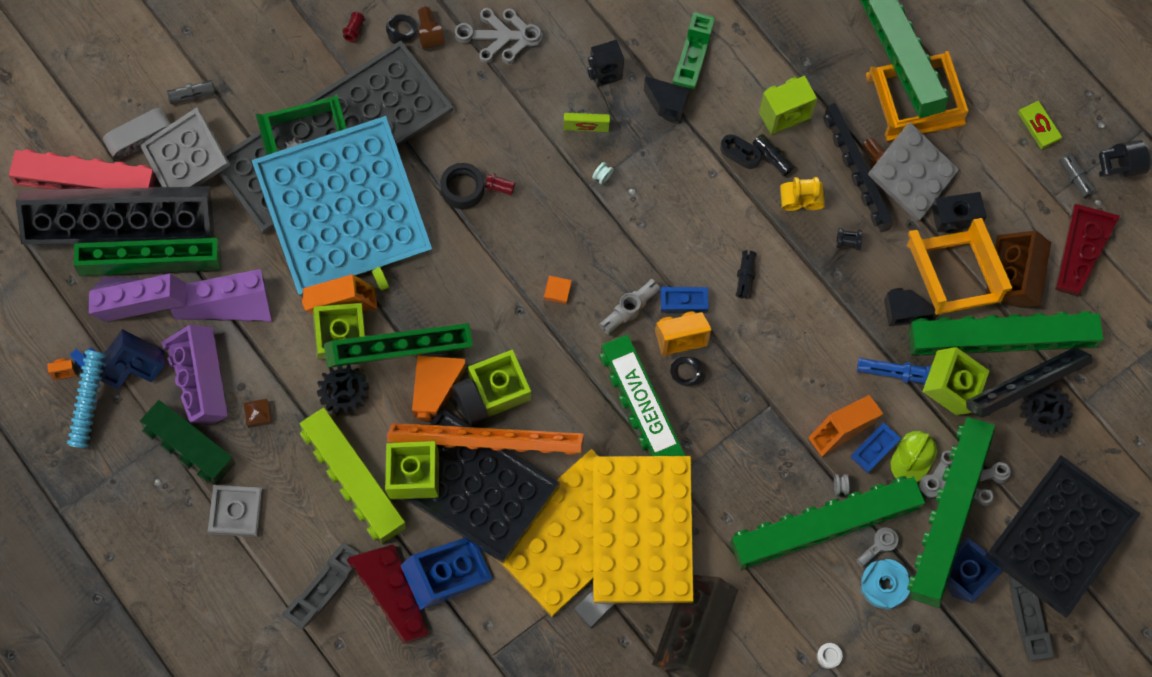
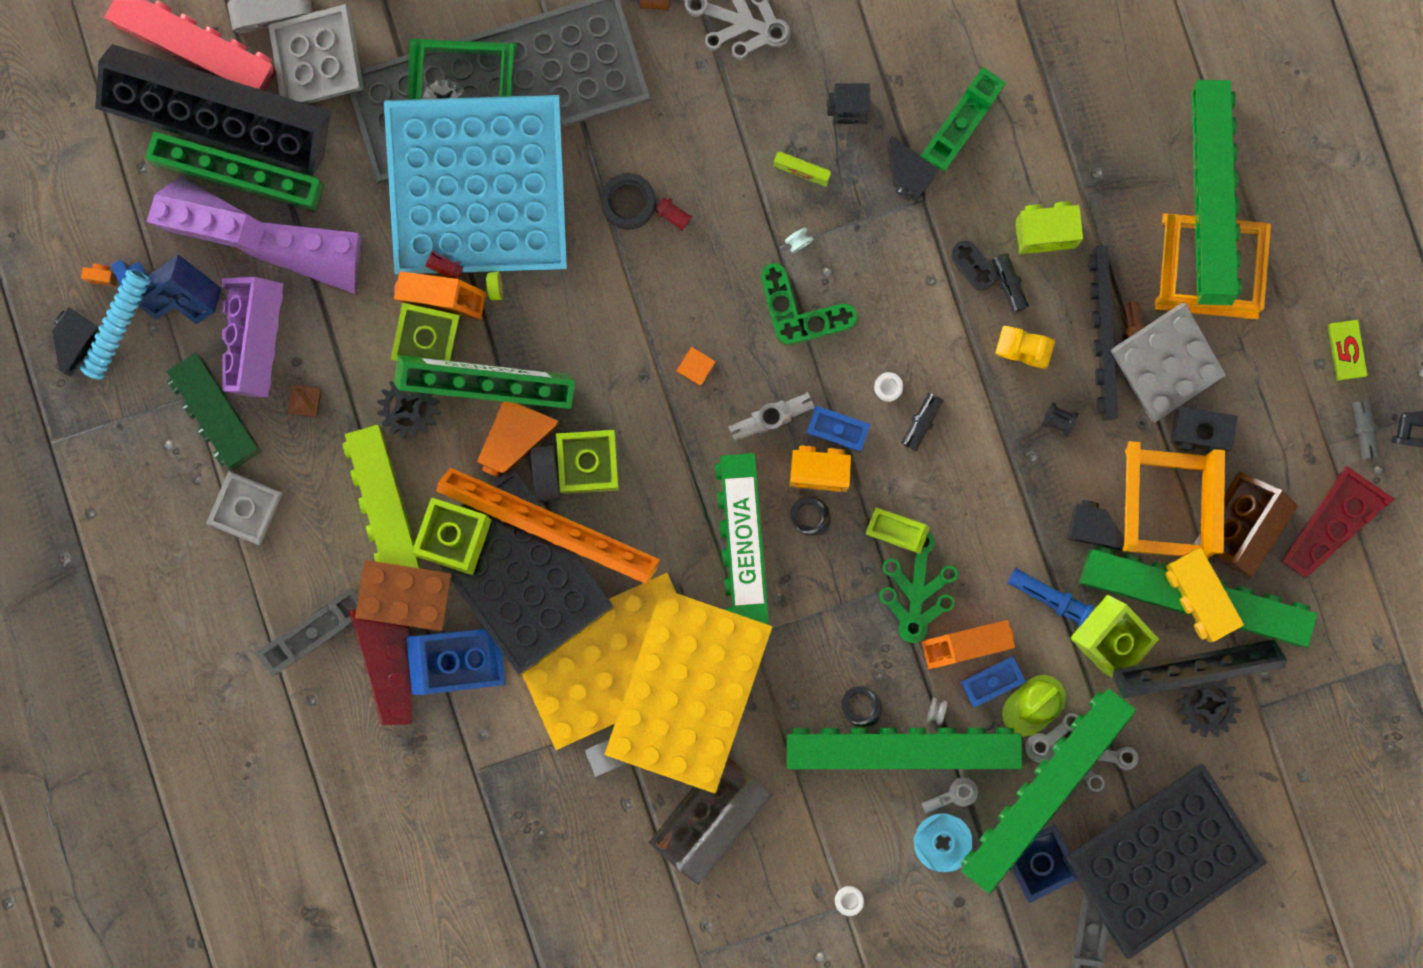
camera: 25 degrees right, 15 degrees up
(55, 422) = (72, 339): none -> black slope
(332, 272) = (444, 265): none -> dark red pin
(388, 530) = (403, 595): none -> dark orange plate
(618, 231) = (791, 317): none -> green beam
(710, 258) = (888, 387): none -> white tile
(758, 358) = (897, 530): none -> lime tile
(790, 400) = (917, 594): none -> green plant
(790, 493) = (873, 718): none -> black piece
(1010, 325) = (1203, 596): none -> yellow brick

